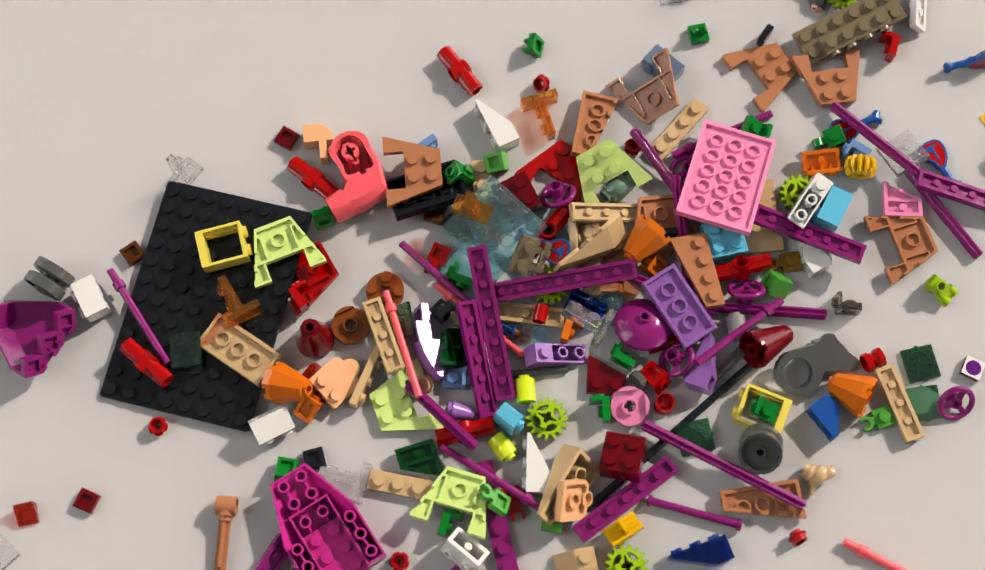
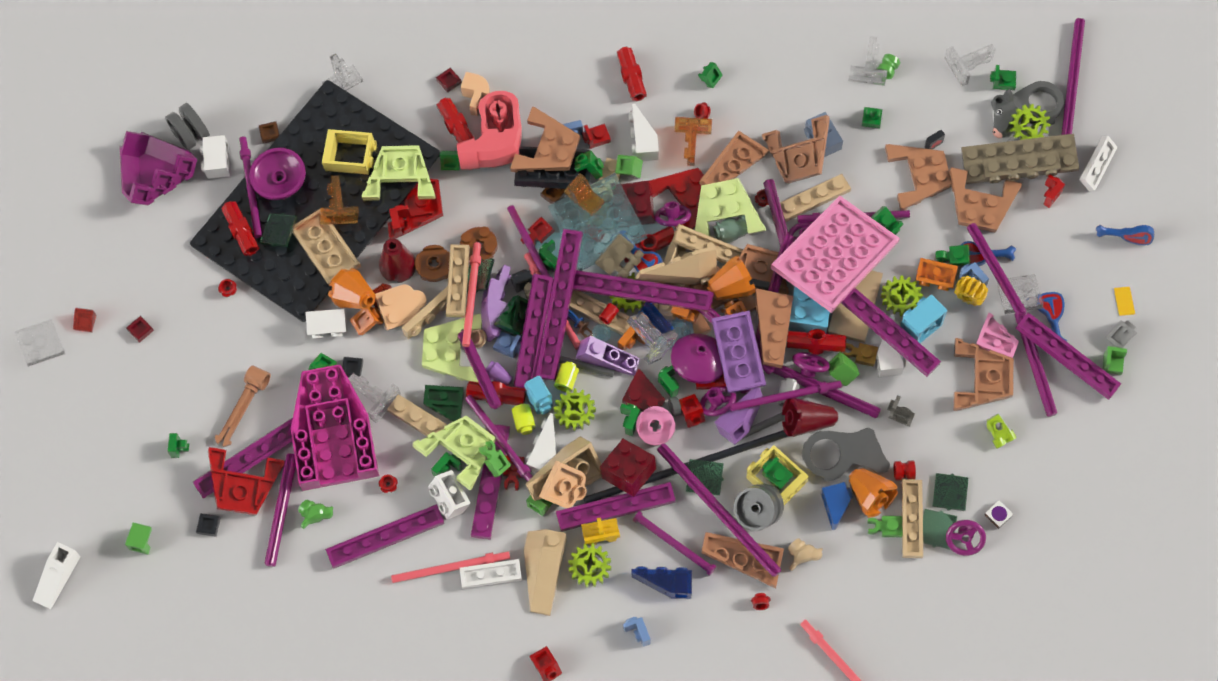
camera: 25 degrees right, 5 degrees down
(155, 285) = (273, 165): none -> magenta dish
(451, 143) = (596, 135): none -> red bracket
(666, 401) = (691, 433): red wheel -> none
(810, 200) = (903, 300): white slope -> none

